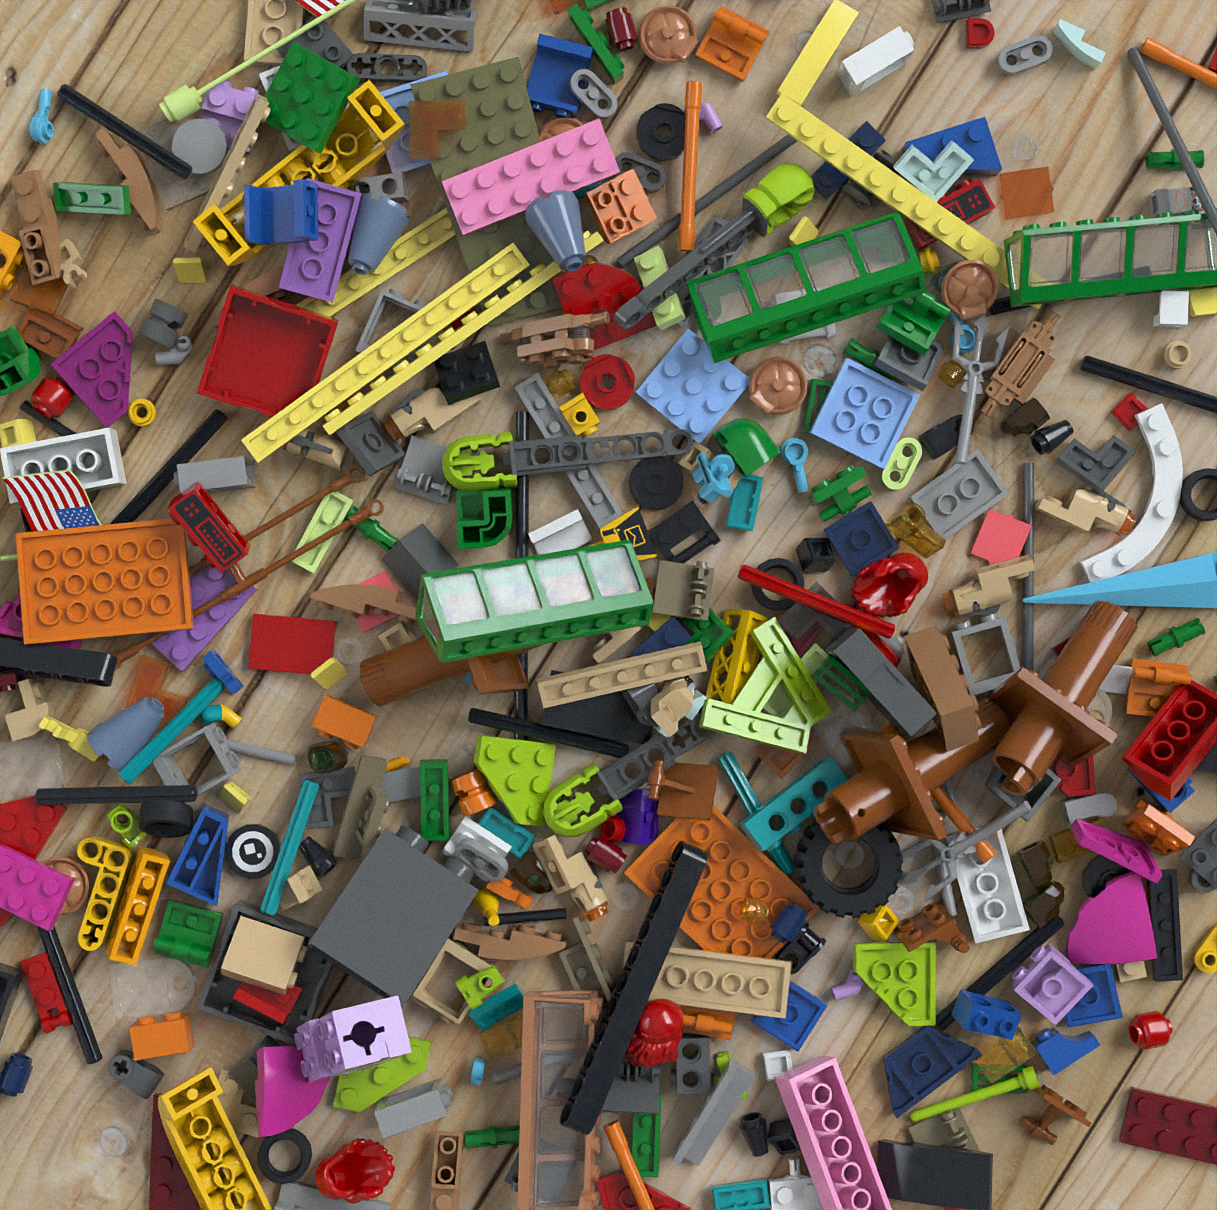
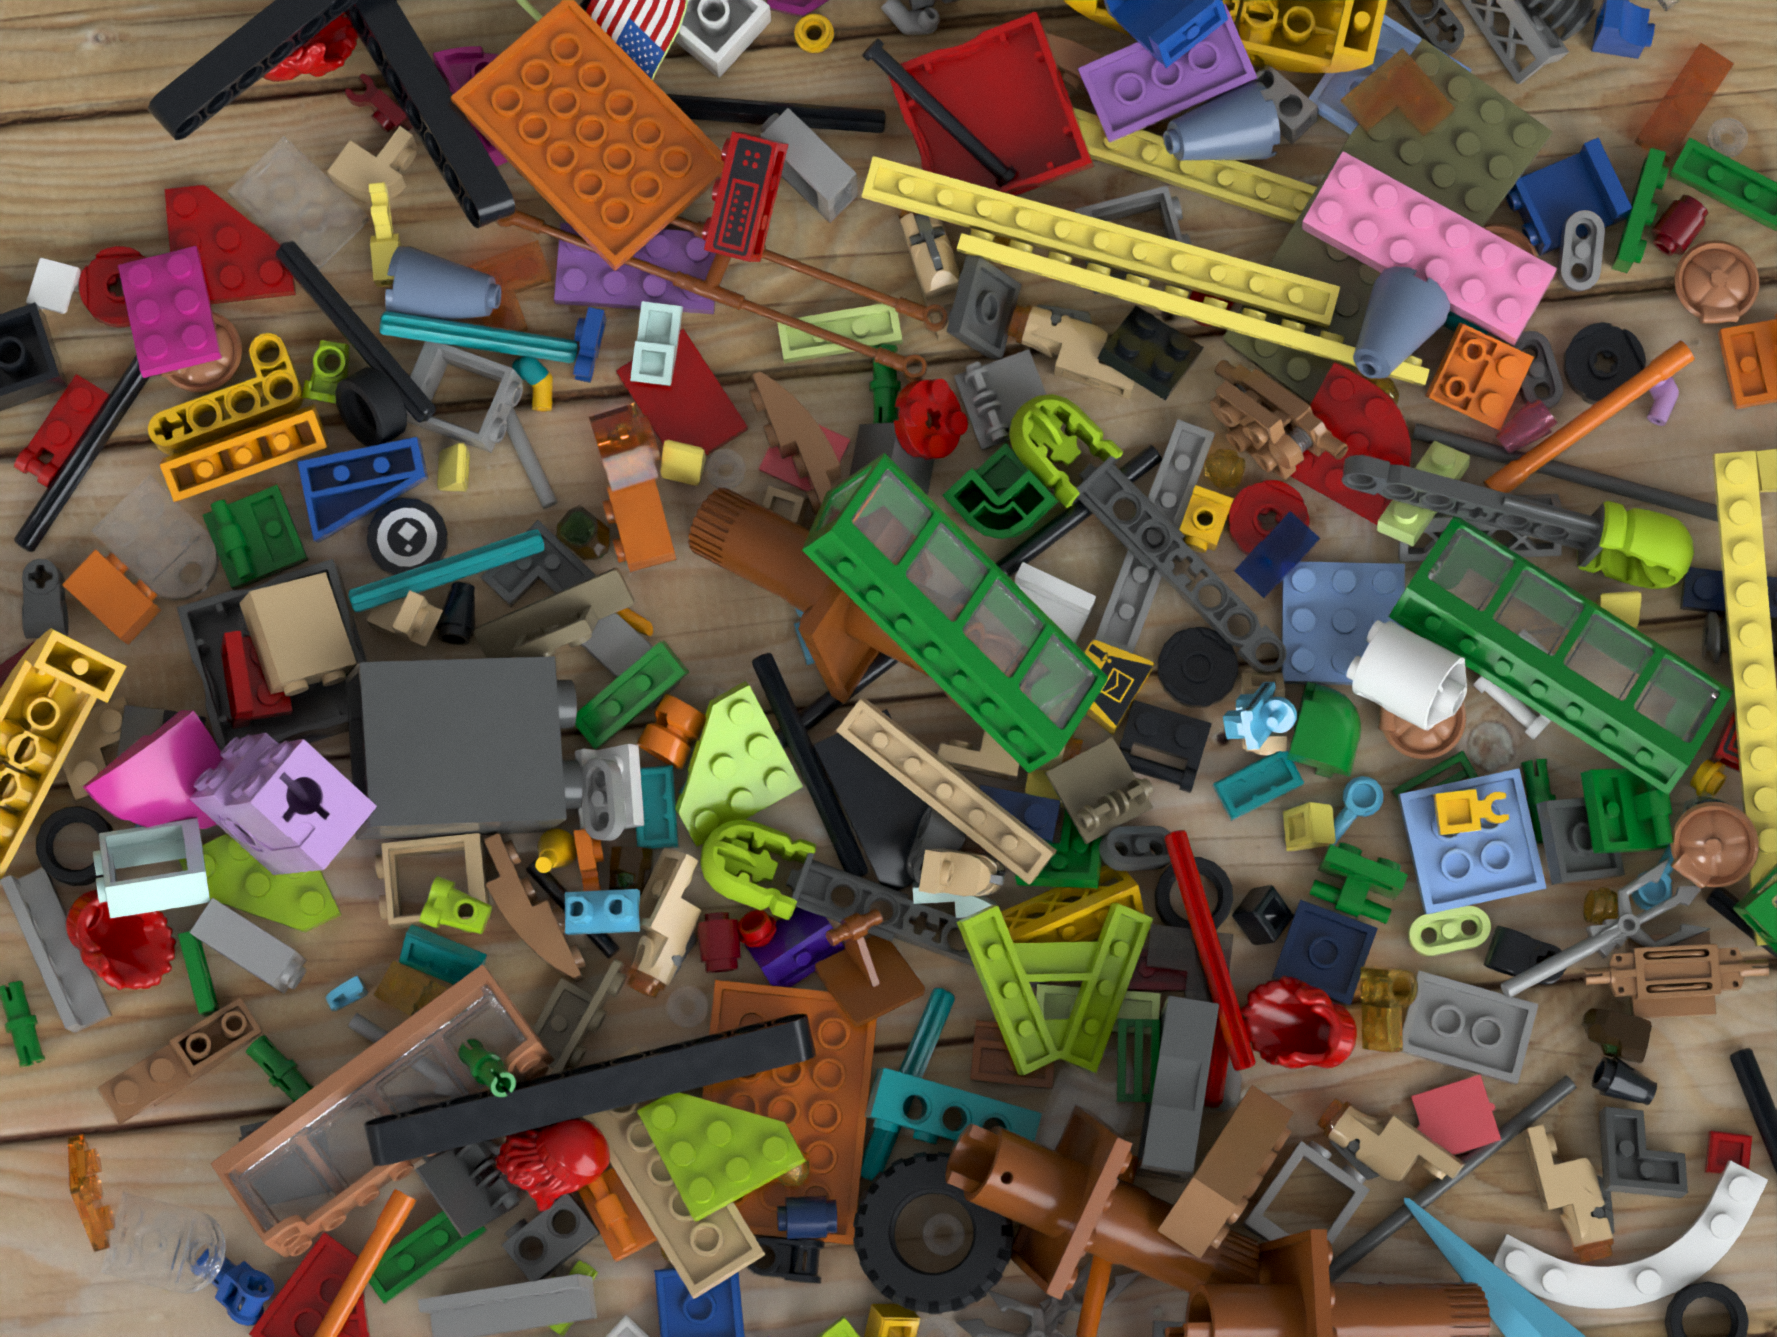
camera: 55 degrees right, 10 degrees down
(243, 383) = (939, 113): none -> black bar
(251, 635) = (656, 343): none -> light aqua slope
(296, 698) = (625, 446): none -> clear orange brick
(315, 1122) = (149, 846): none -> light aqua window
(408, 1144) = (199, 974): none -> green tile
(415, 510) = (946, 419): none -> red plate
(542, 906) = (602, 911): none -> medium azure hips
(581, 1035) = (486, 1068): none -> green pin
(631, 393) = (1277, 554): none -> clear blue slope
(666, 202) = (1526, 426): none -> clear pink cone
(718, 945) = (717, 1149): none -> lime plate
(727, 595) = (1134, 848): none -> dark grey plate
(756, 378) = (1409, 675): none -> white cylinder
(788, 493) = (1309, 826): none -> light yellow slope
(847, 407) = (1462, 811): none -> yellow plate

